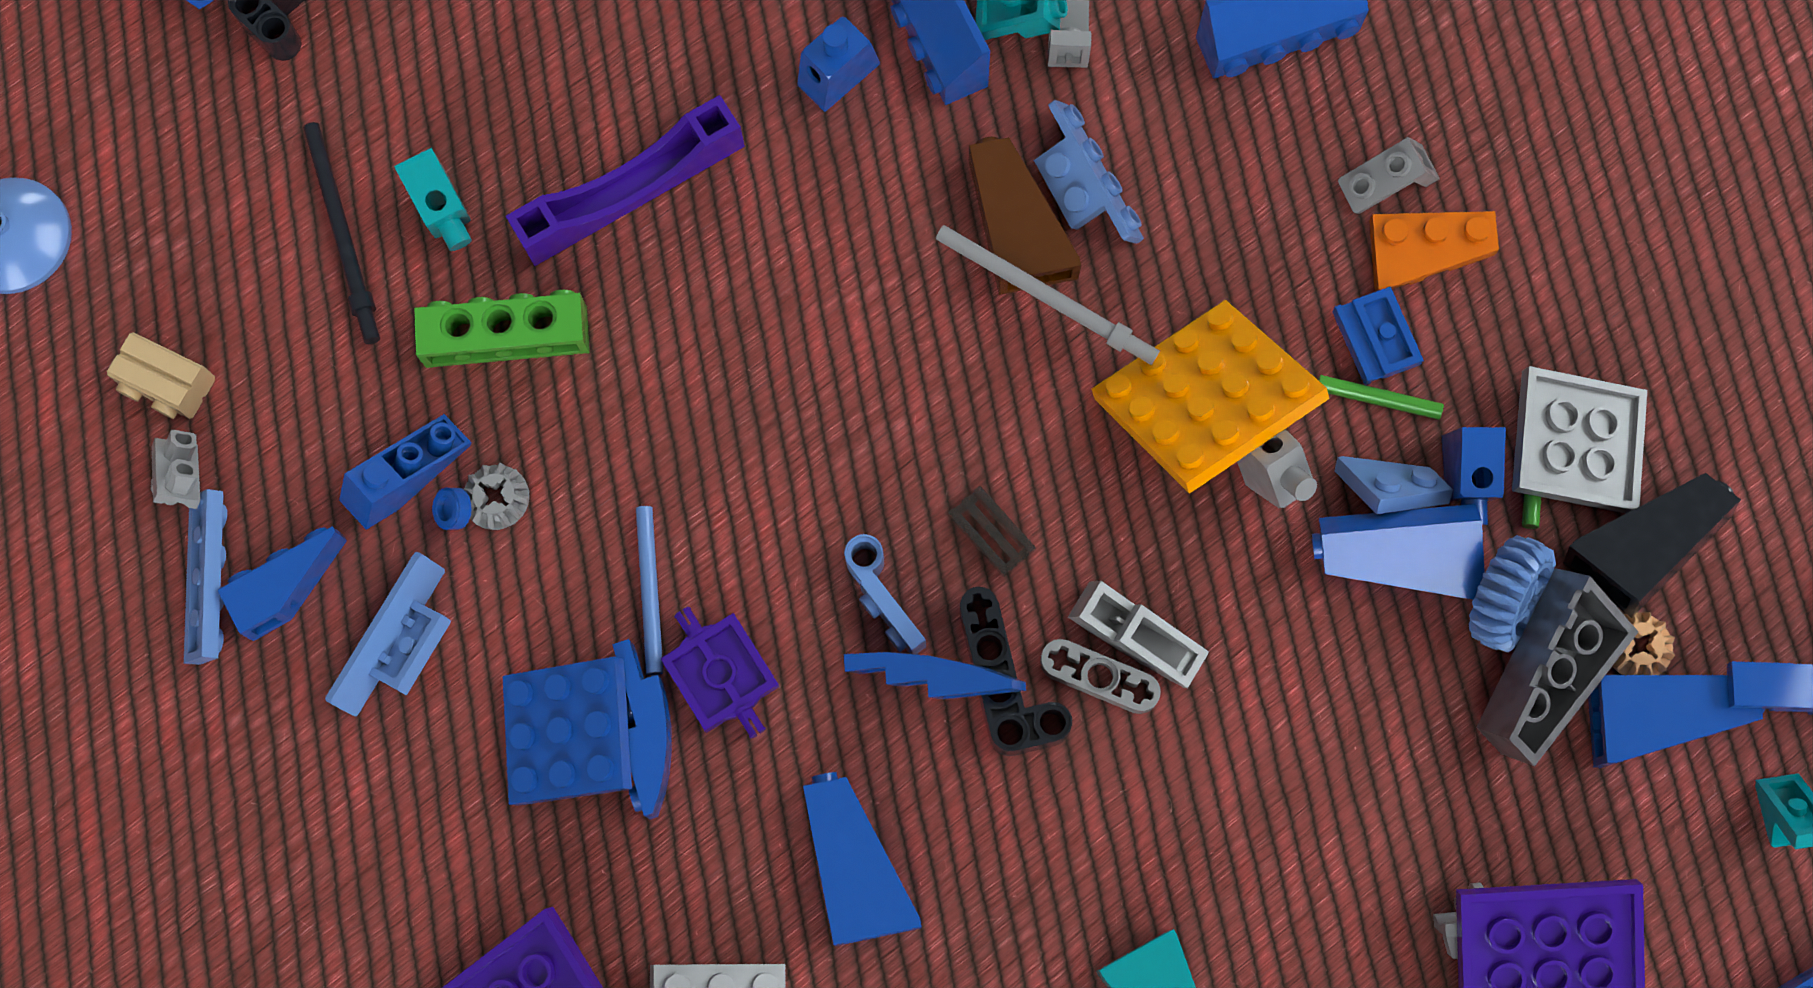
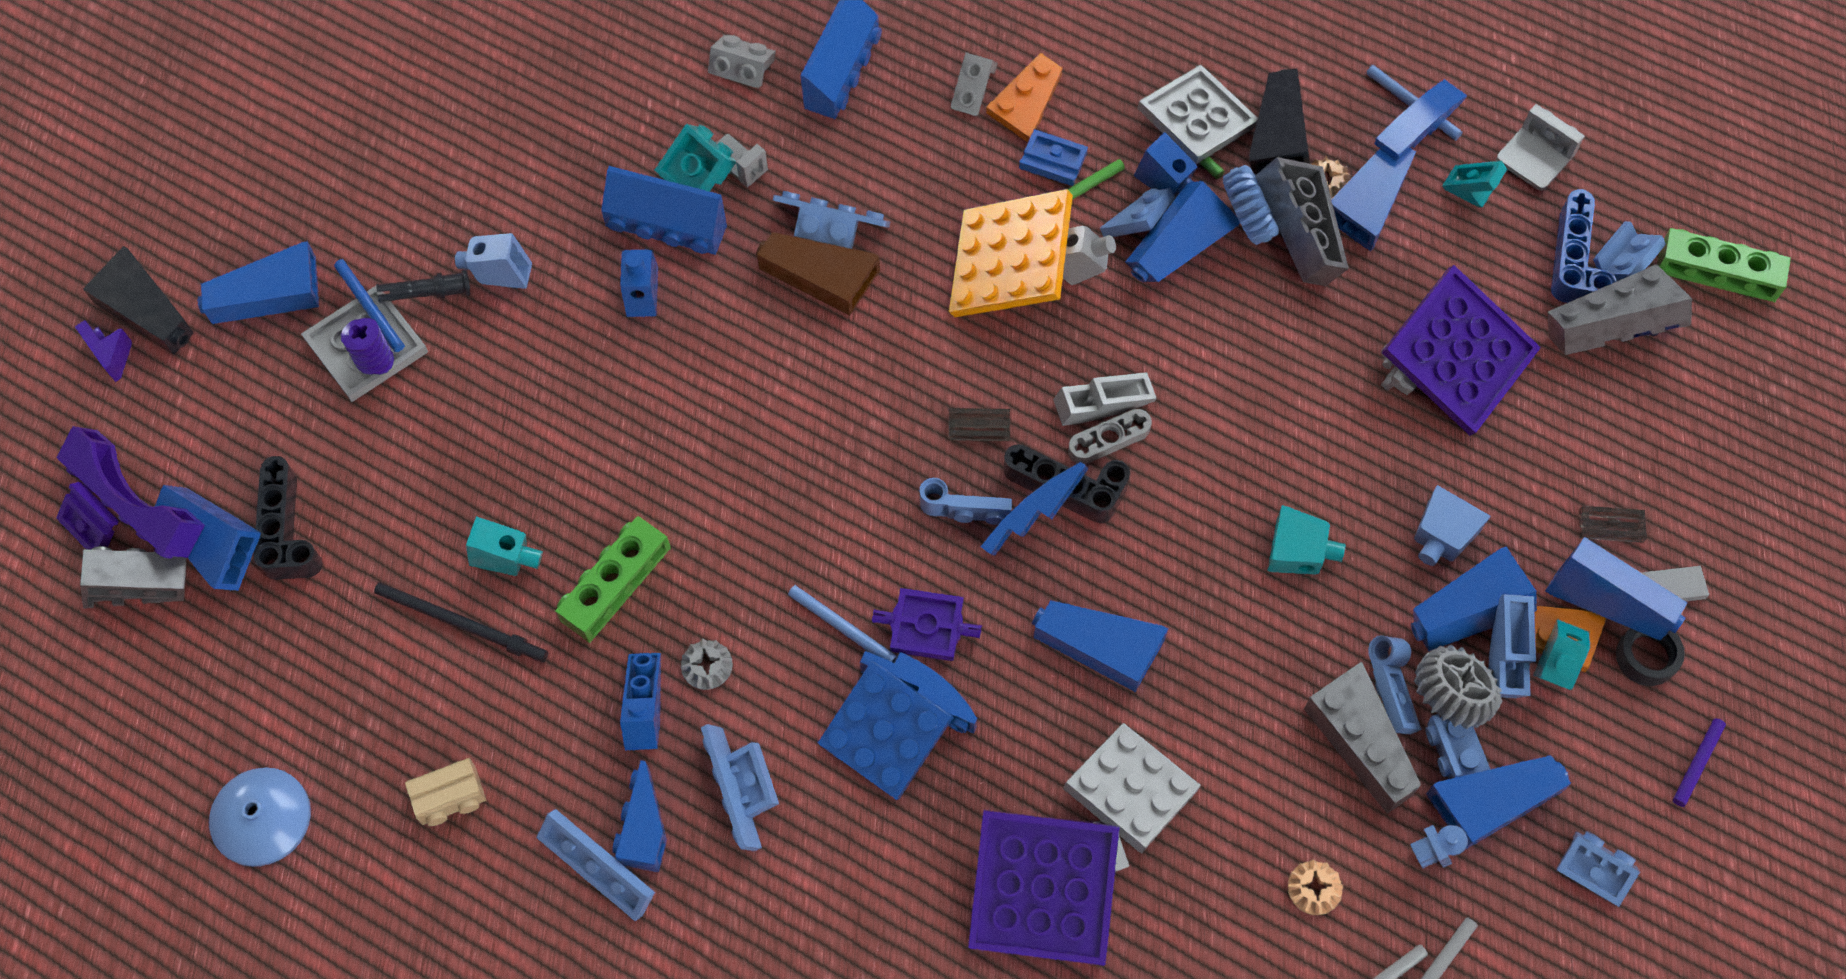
camera: 50 degrees left, 10 degrees down
(176, 470) = (516, 827): light grey hips -> none
(451, 508) = (691, 691): blue tile -> none
(566, 217) = (585, 483): dark purple arch -> none
(1117, 335) = (935, 270): light grey bar -> none

